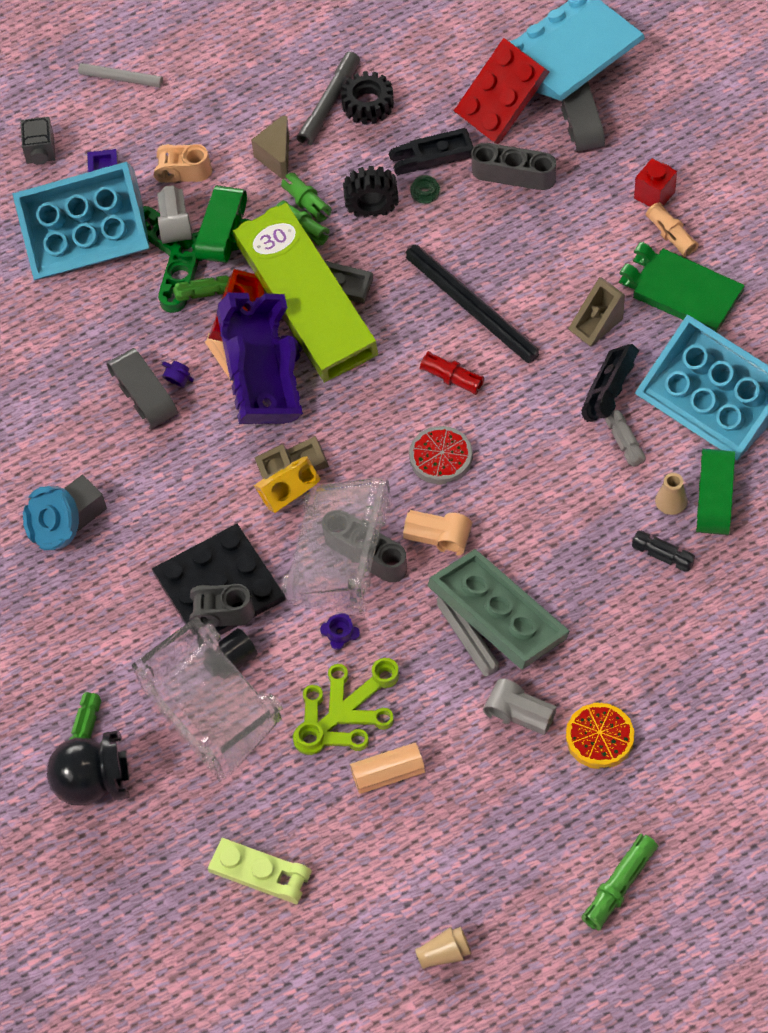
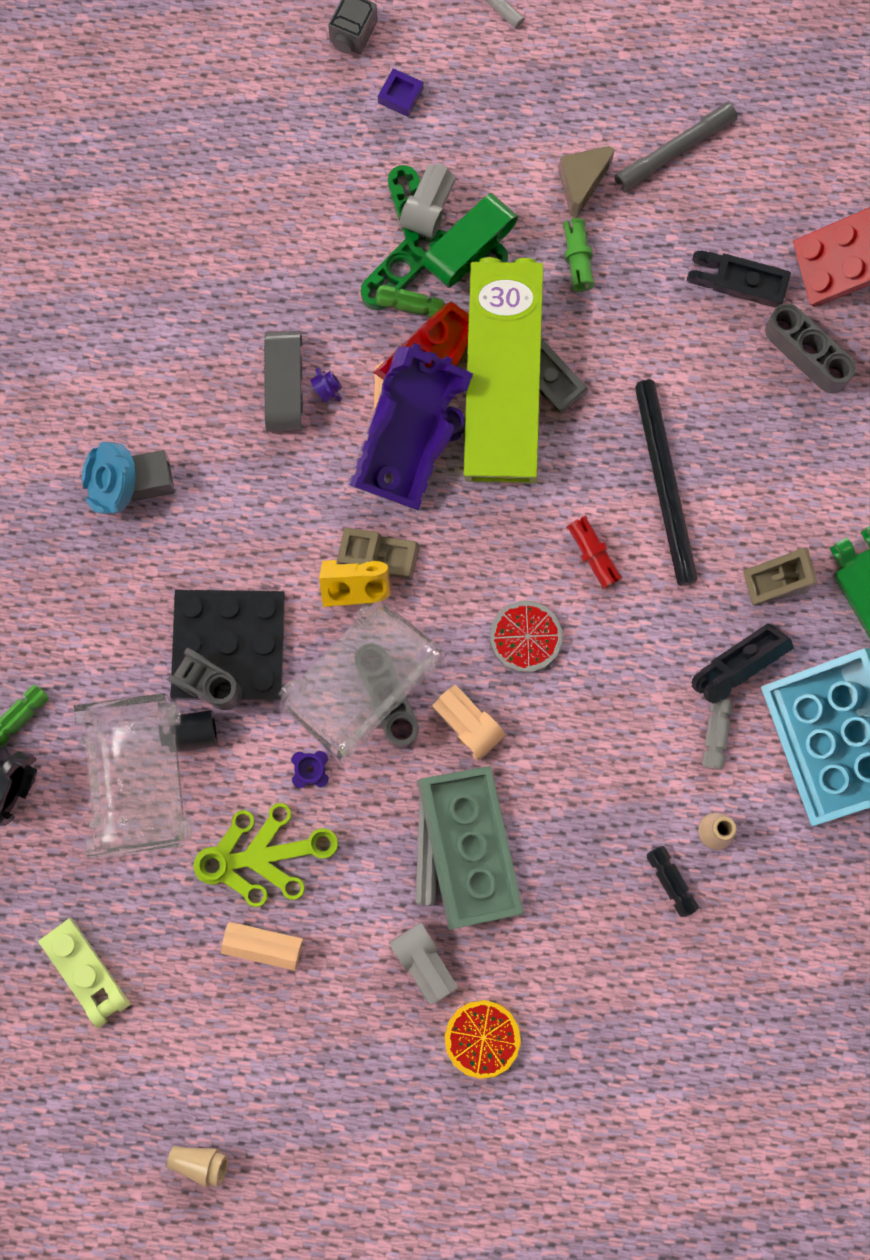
camera: 25 degrees right, 20 degrees up
(82, 220) = (337, 152): medium azure slope -> none
(183, 162) = (474, 135): light nougat piece -> none
(311, 227) = (555, 283): bright green pin -> none
(367, 85) = (719, 154): black tyre -> none
(382, 188) = (643, 293): black tyre -> none
(425, 182) = (707, 309): clear green plate -> none
(611, 893) = (401, 1203): bright green pin -> none
(715, 491) = (766, 853): green beam -> none

